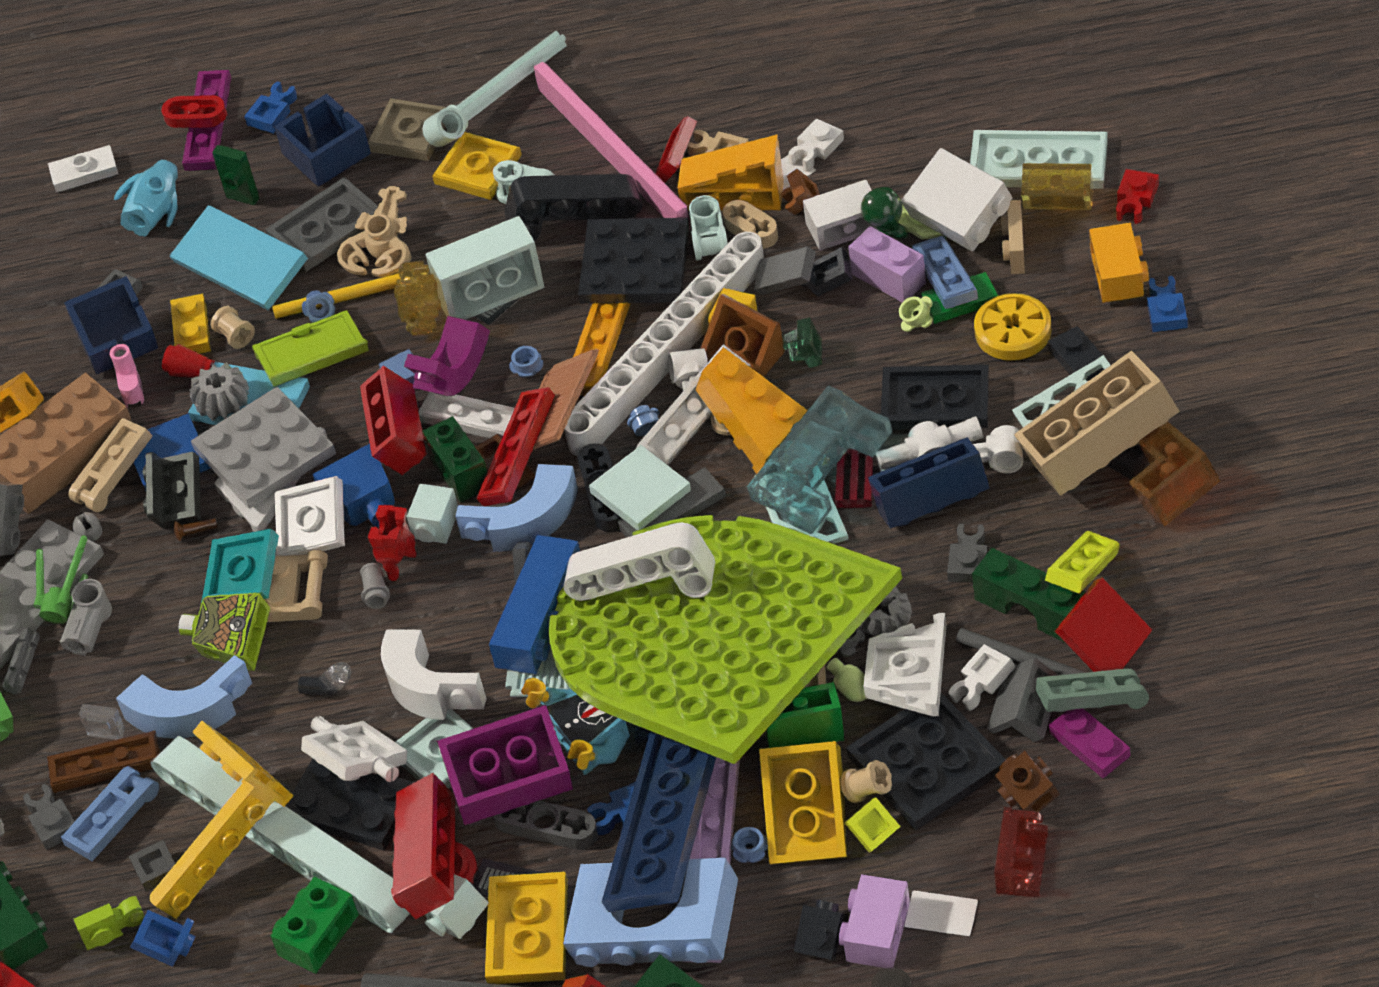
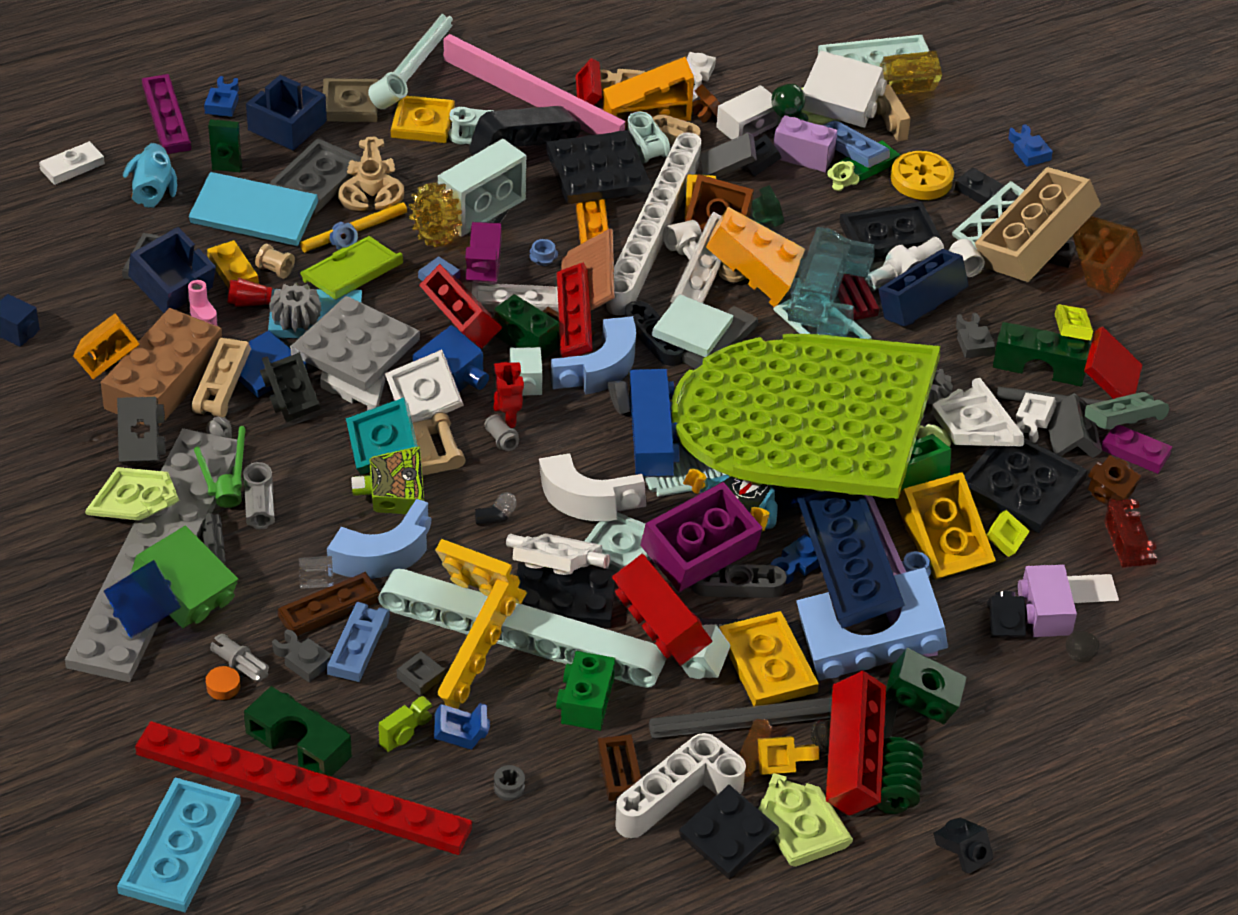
camera: 30 degrees left, 5 degrees down
(181, 530) = (307, 419): reddish brown piece -> none
(194, 111) = (159, 105): red plate -> none
(642, 558) = (739, 368): white beam -> none
(643, 419) = (666, 279): medium blue plate -> none
(866, 781) = (992, 501): tan bush -> none
(1117, 262) = (982, 119): light orange brick -> none
(1135, 192) = (965, 73): red plate -> none

